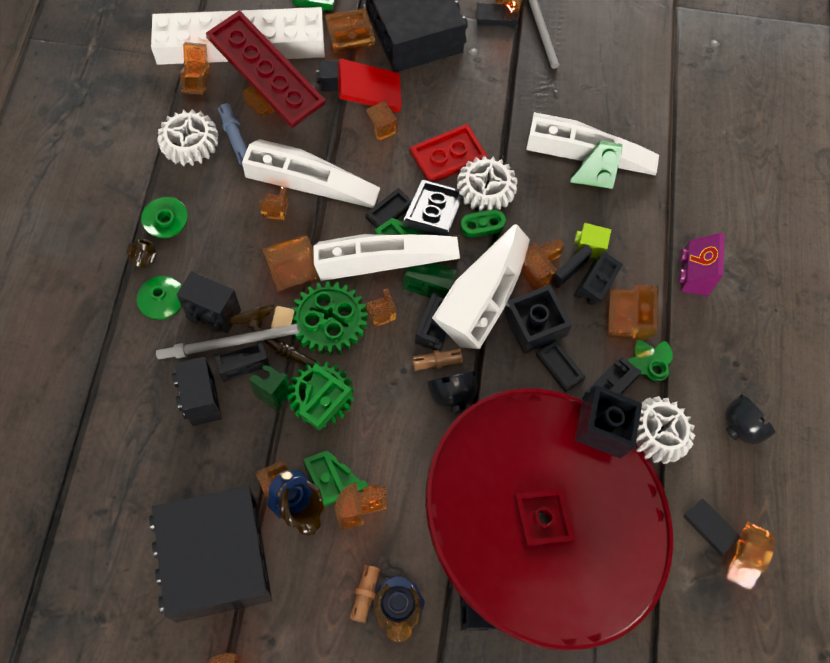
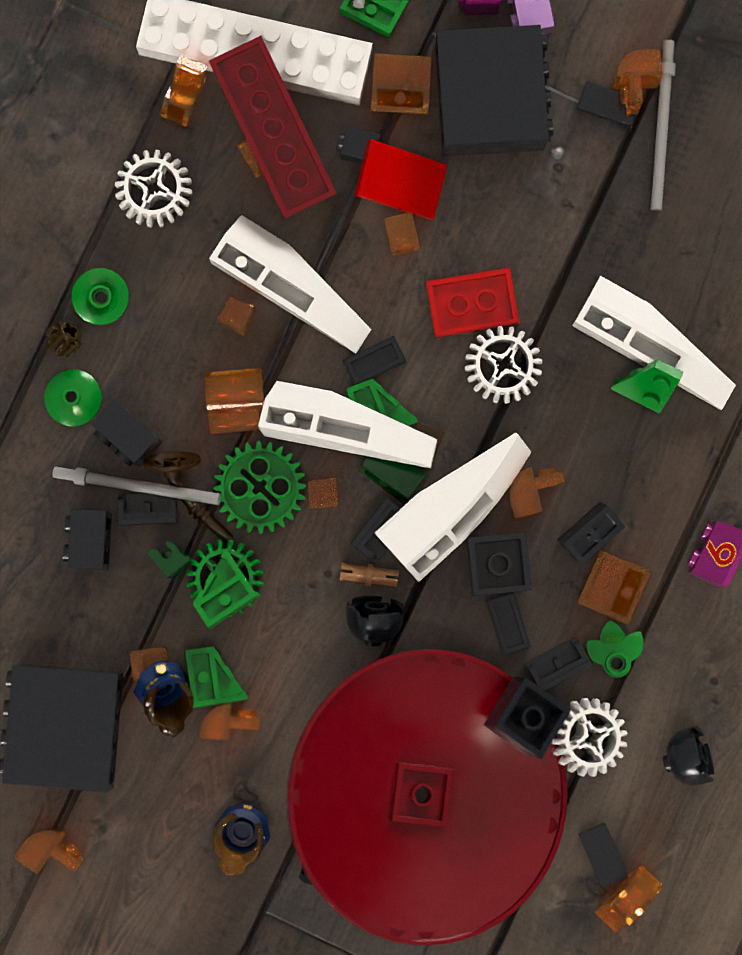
camera: 15 degrees right, 20 degrees up
(232, 128) = (212, 196): sand blue pin -> none
(282, 317) = (204, 476): tan slope -> none
(365, 594) = (210, 811): medium nougat pin -> none
(433, 208) = (426, 382): tile -> none
(481, 223) = (480, 416): green plate -> none
(571, 266) = (566, 507): black tile -> none
(593, 236) = (604, 480): lime brick -> none

